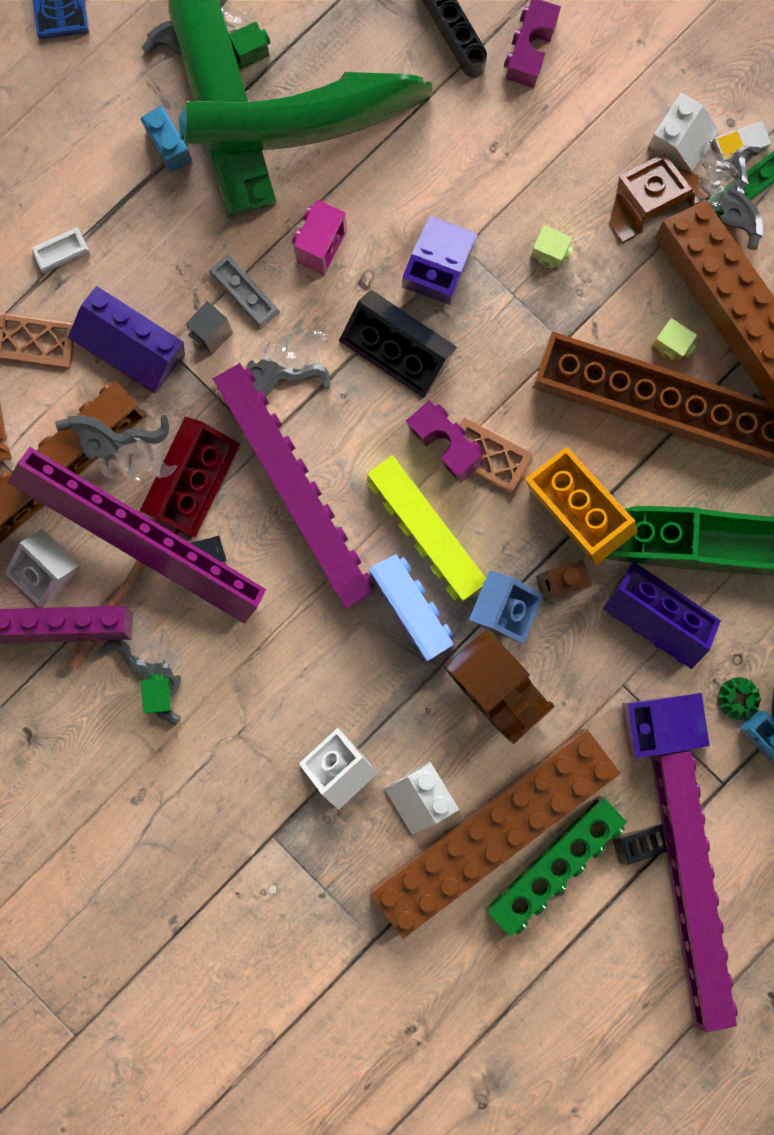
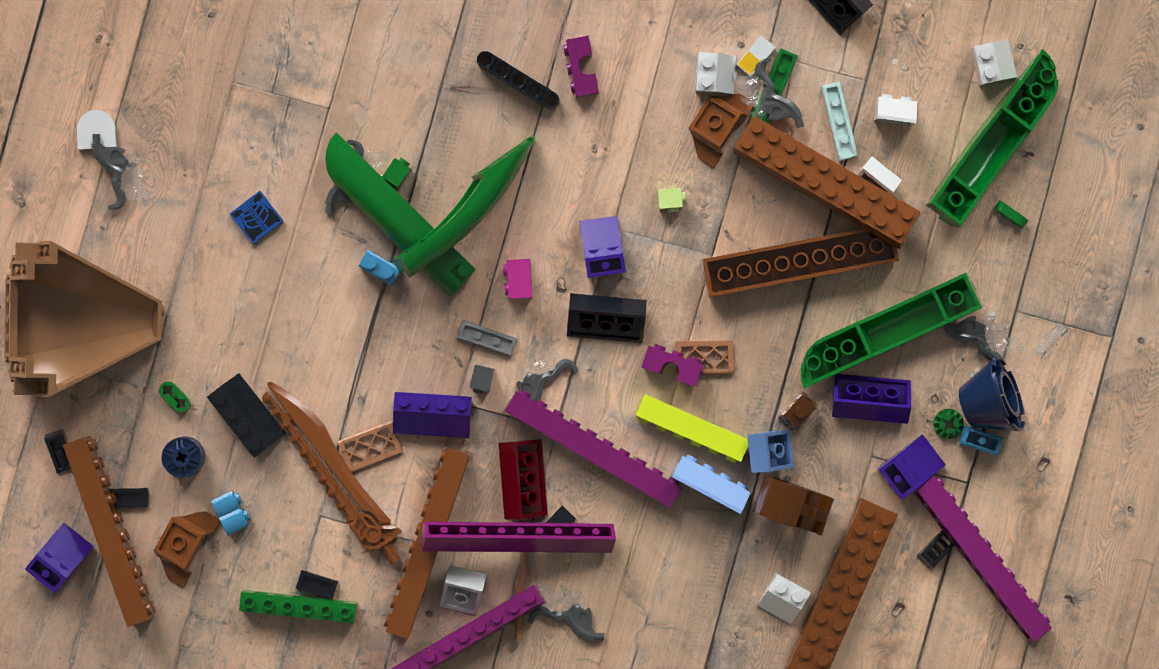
camera: 30 degrees left, 5 degrees up
(60, 250) = (352, 378): white tile -> none
(123, 451) = (476, 490): piece -> none
(156, 694) = (583, 627): green brick -> none
(338, 768) = (721, 609): white slope -> none
(540, 869) = (898, 545): green brick -> none
(581, 505) = (782, 361): light orange brick -> none
(675, 341) = (784, 217): yellowish green brick -> none

